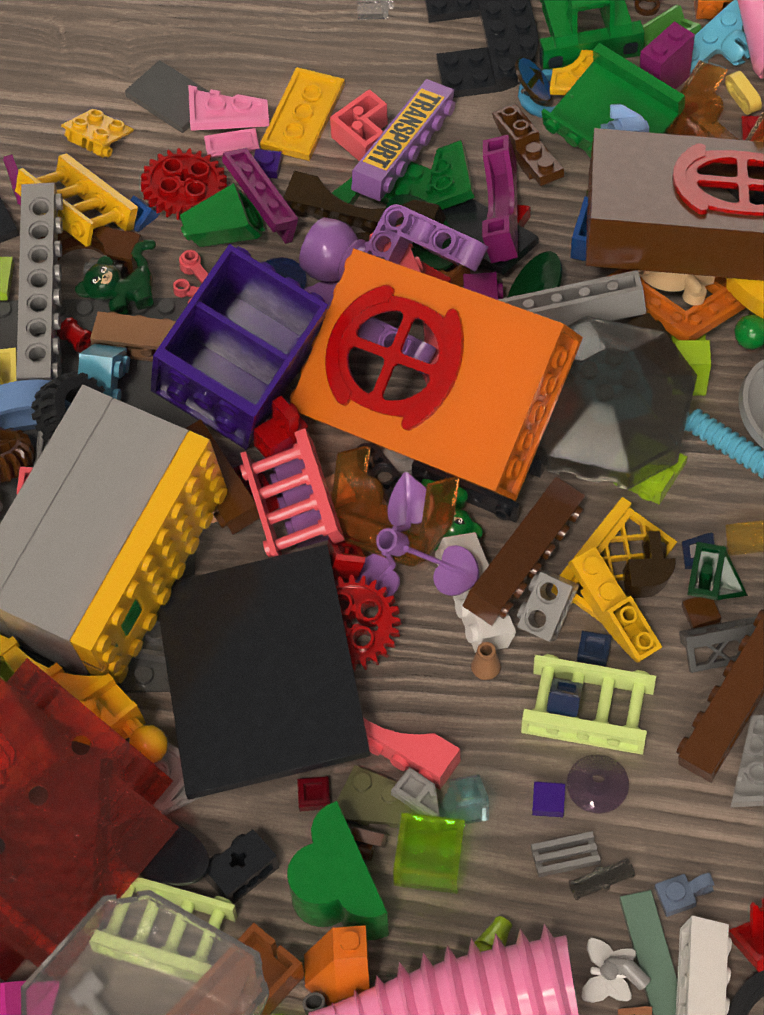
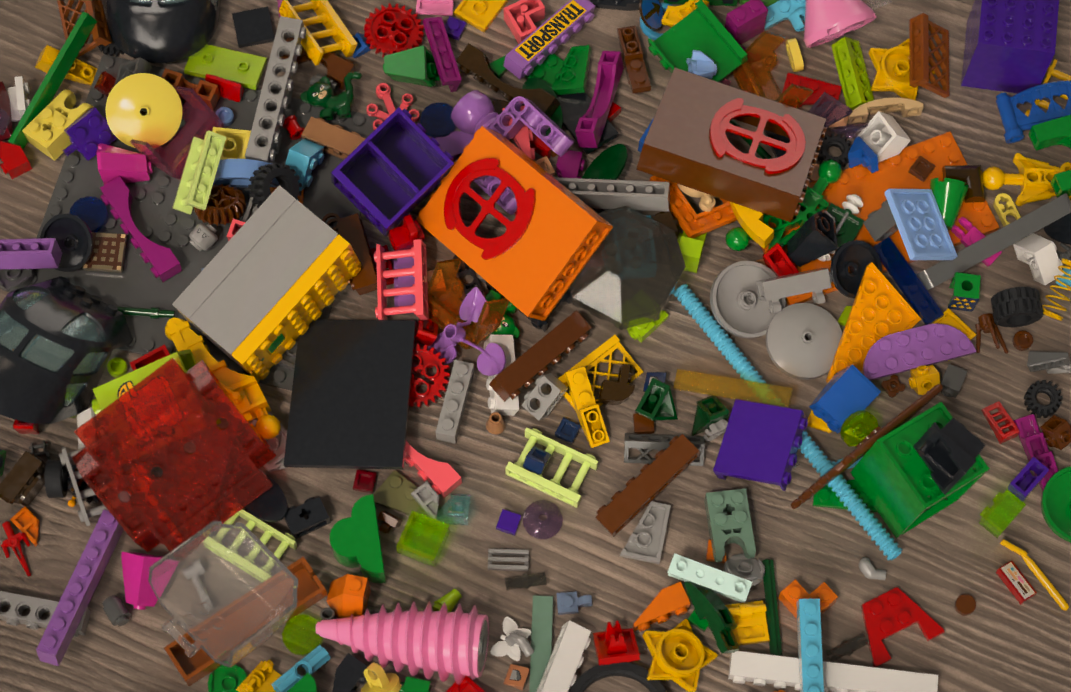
camera: 10 degrees right, 10 degrees up
(416, 646) = (455, 401): none -> light grey brick

